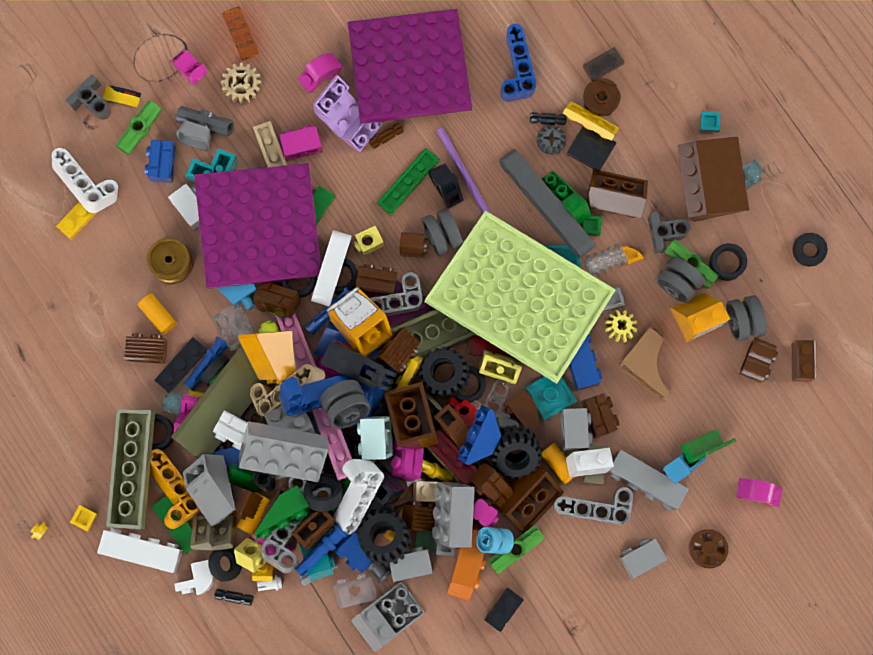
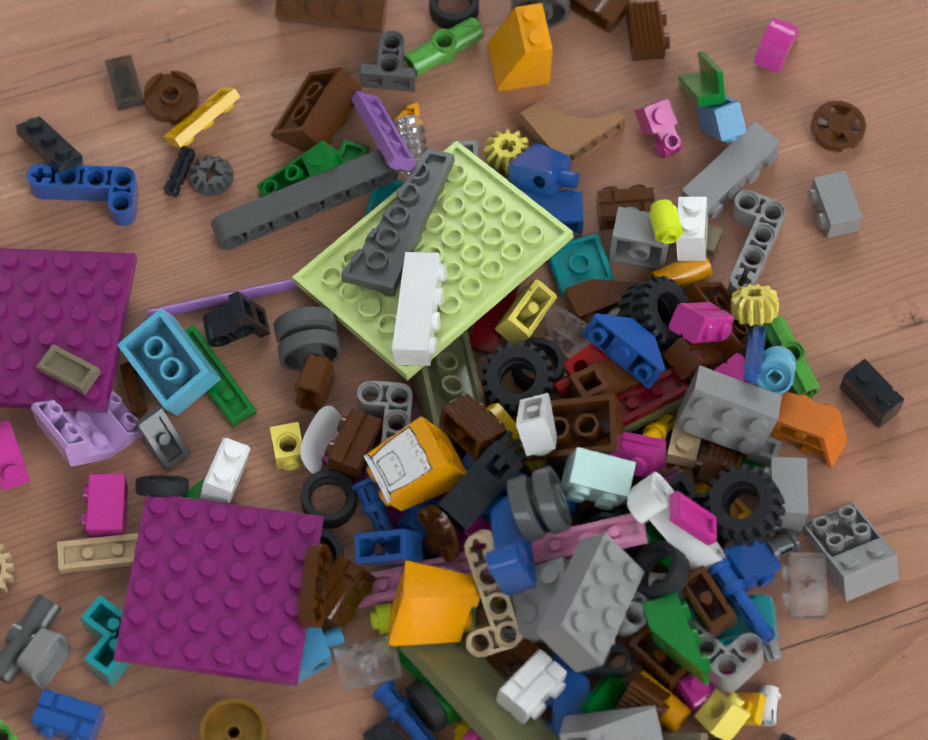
camera: 75 degrees left, 15 degrees down
(186, 203) = (154, 692): white brick -> none
(283, 280) = (314, 586): none -> reddish brown beam
(305, 326) = (396, 546): none -> blue torso
(319, 348) = (439, 533): none -> reddish brown dish
(322, 179) = (162, 485): none -> black tyre
(331, 268) = (316, 497): white beam -> none
(337, 207) = (225, 471): none -> white brick
(354, 162) = (162, 438): none -> dark grey slope
(357, 504) = (692, 518): none -> dark pink tile
(377, 257) = (317, 437): none -> white sticker
(378, 91) = (68, 369): none -> dark tan tile
(403, 389) = (536, 425): none -> white slope
(404, 150) = (169, 362): none -> medium azure brick
(472, 294) = (418, 309): none -> white brick
(500, 523) = (754, 354): none -> blue axle
(512, 483) = (701, 322): none -> dark pink brick
(520, 266) = (382, 256): none -> dark grey wing
(540, 31) = (49, 144): none -> black plate
(543, 517) = (754, 305): none -> light yellow gear
(579, 442) = (665, 221): none -> neon yellow brick
(591, 149) = (242, 127): black slope -> none
(606, 239) = (383, 131): none -> medium lavender plate
(607, 352) = (542, 171): none -> blue torso
(670, 424) = (660, 121): none -> dark pink brick
(680, 279) = (465, 60): dark grey wheel -> none
(745, 398) = (646, 31): none -> reddish brown brick

